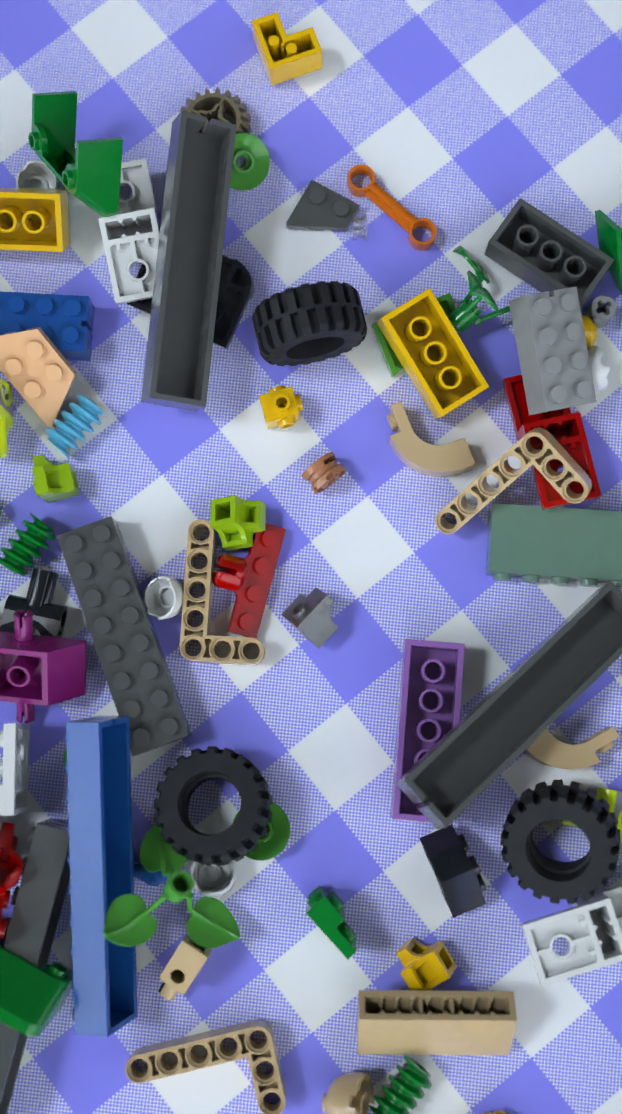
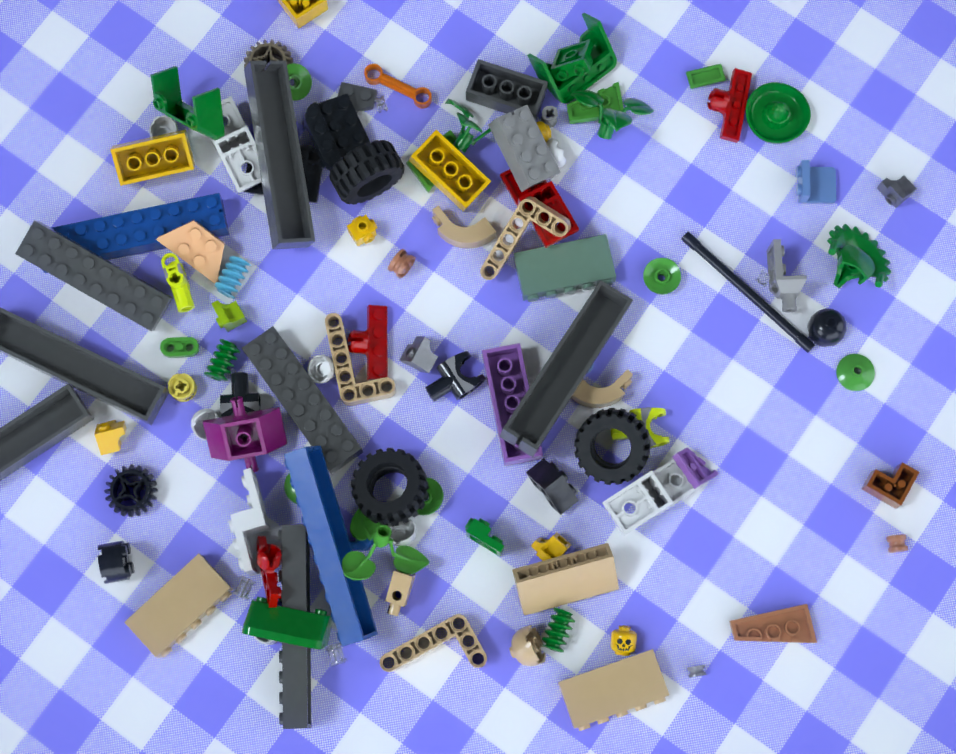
camera: 20 degrees left, 5 degrees down
(66, 1032) = (336, 654): none -> clear bush
(237, 521) = (354, 308): lime brick -> none
(281, 246) = (334, 129): none -> black plate
(351, 666) = (453, 380): none -> black connector

